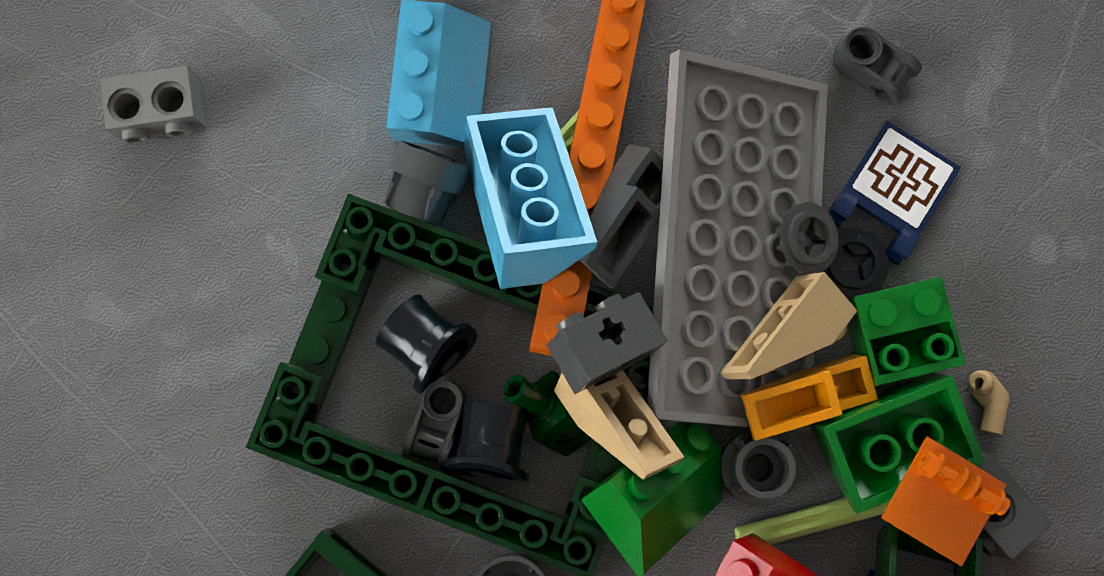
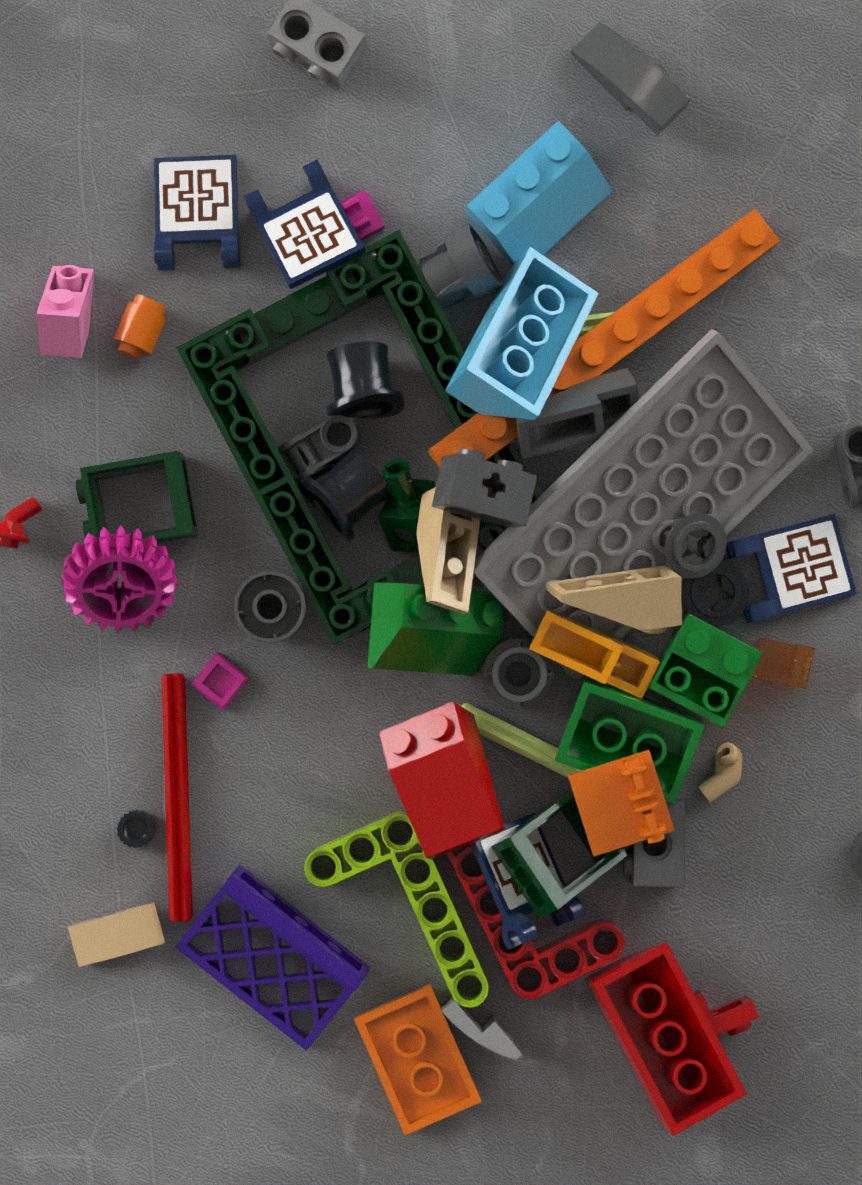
camera: 45 degrees right, 5 degrees up
(129, 497) = (65, 311): none -> bright pink slope
(165, 316) = (196, 205): none -> flag
(203, 455) = (140, 327): none -> orange brick
(275, 260) = (307, 232): none -> flag
(307, 216) = (362, 215): none -> dark pink tile
(961, 268) = (784, 663): none -> clear orange panel

